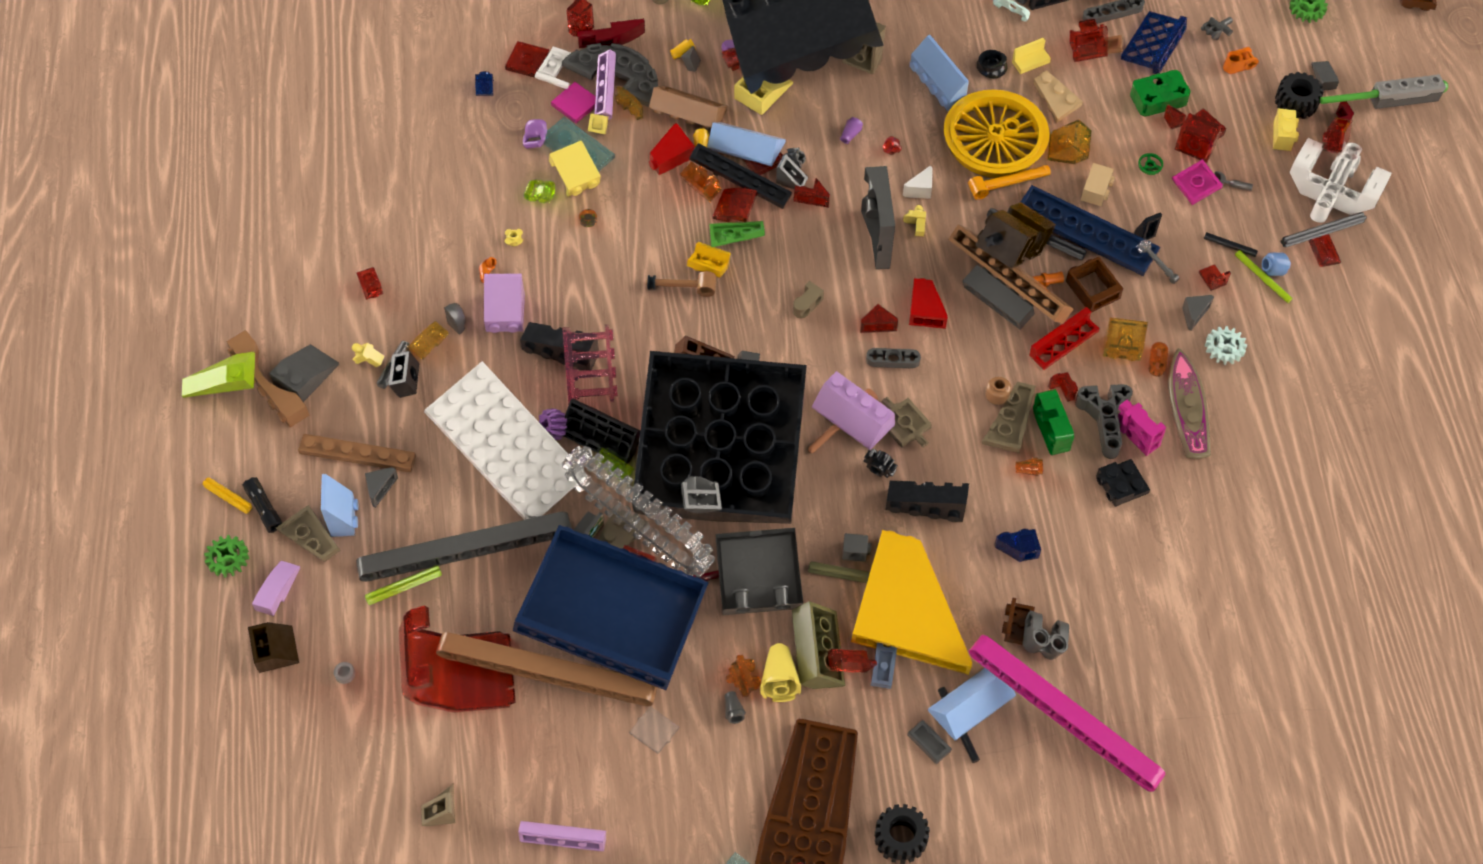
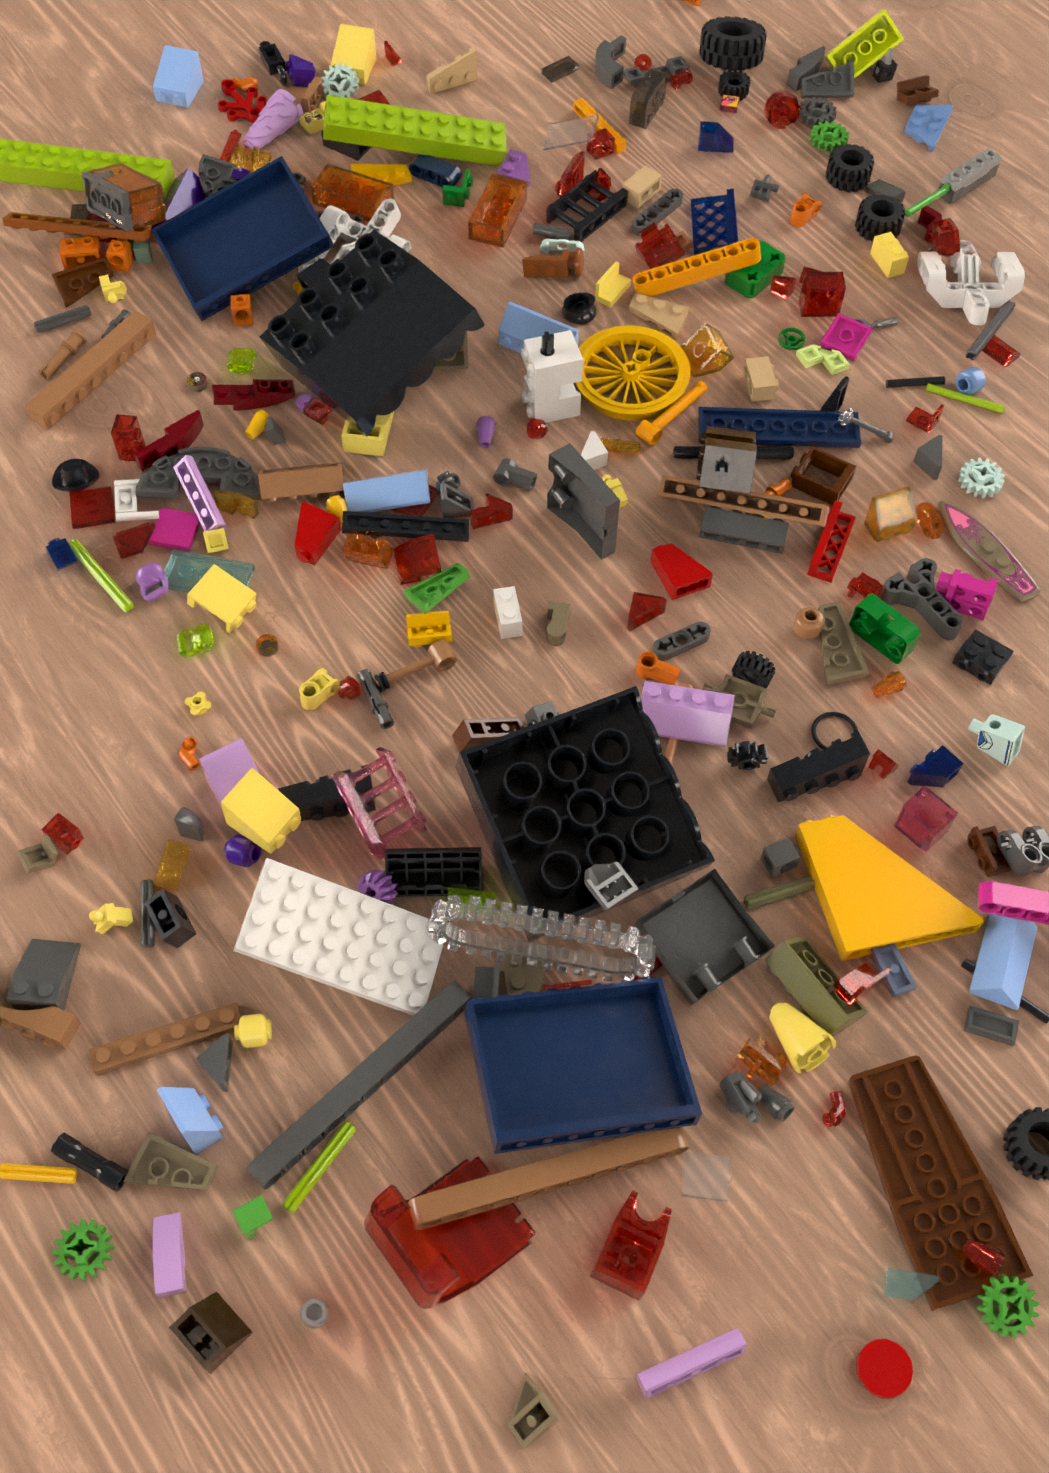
camera: 30 degrees left, 0 degrees up
(340, 590) = (252, 1216): none -> bright green panel
(345, 290) = (39, 855): none -> dark tan bracket
(414, 476) = (253, 1030): none -> light yellow head
(480, 351) = (242, 851): none -> dark purple head
(502, 330) = (260, 812): none -> light yellow slope
(503, 113) = (101, 575): none -> lime axle
(528, 30) = (74, 475): none -> black hat
(539, 97) = (133, 540): none -> clear red slope
(575, 738) = (632, 1238): none -> clear red brick
(602, 266) = (320, 686): none -> light yellow piece
(625, 276) = (349, 688): none -> clear red tile
(637, 299) = (378, 706): none -> dark grey pin
(695, 26) = (258, 395): none -> dark red slope
(712, 689) = (741, 1096): none -> dark grey rock
(774, 275) = (507, 612): none -> white brick
(775, 737) = (837, 1112): none -> clear red arm
(848, 171) = (510, 473): none -> dark grey piece
(859, 370) = (658, 669): none -> orange piece
(920, 109) = (552, 368): none -> white piece
(929, 403) = (754, 669): none -> black tyre
(948, 187) = (619, 445): none -> clear yellow axle
(971, 467) = (828, 714): none -> black tyre
(982, 574) = (925, 818): none -> clear pink piece
(985, 520) = (883, 760): none -> clear red tile
(994, 21) = (554, 266): none -> dark orange piece
(1085, 546) = (998, 737): none -> light aqua torso
(1107, 71) = (698, 267): none -> light orange beam
(1161, 185) = (813, 355): none -> yellowish green tile
(1305, 40) = (850, 167): none -> black tyre
(1410, 30) = (928, 123): none -> medium blue wing

